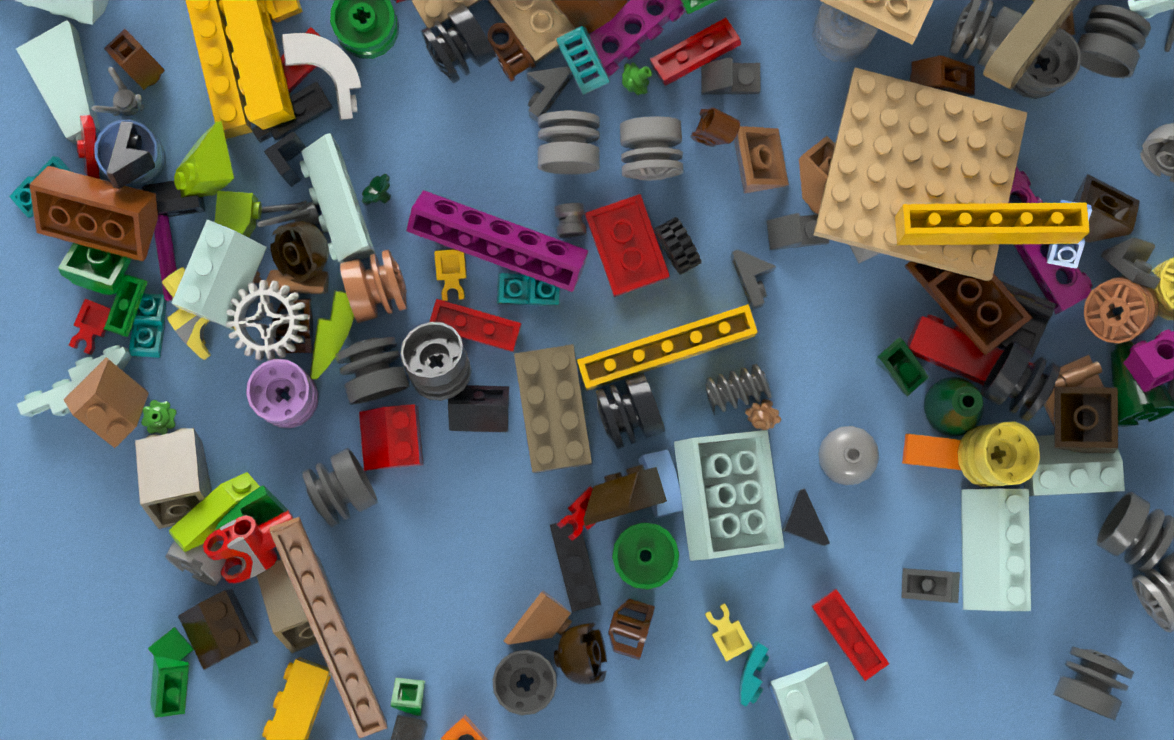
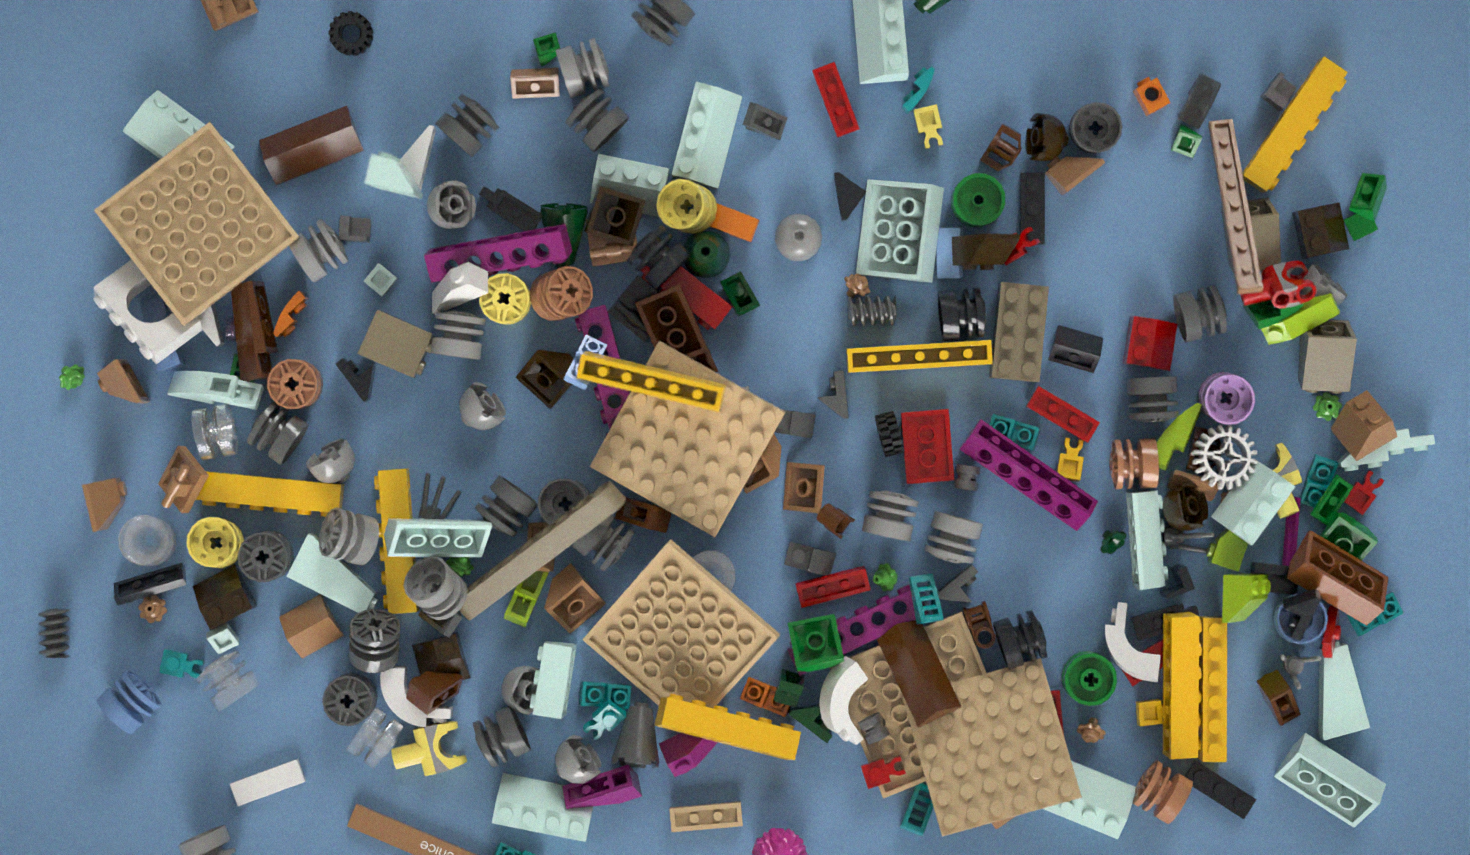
camera: 165 degrees left, 5 degrees up
(436, 361) = (1105, 403): dark grey wheel -> none
(1131, 260) = (542, 327): dark grey slope -> none

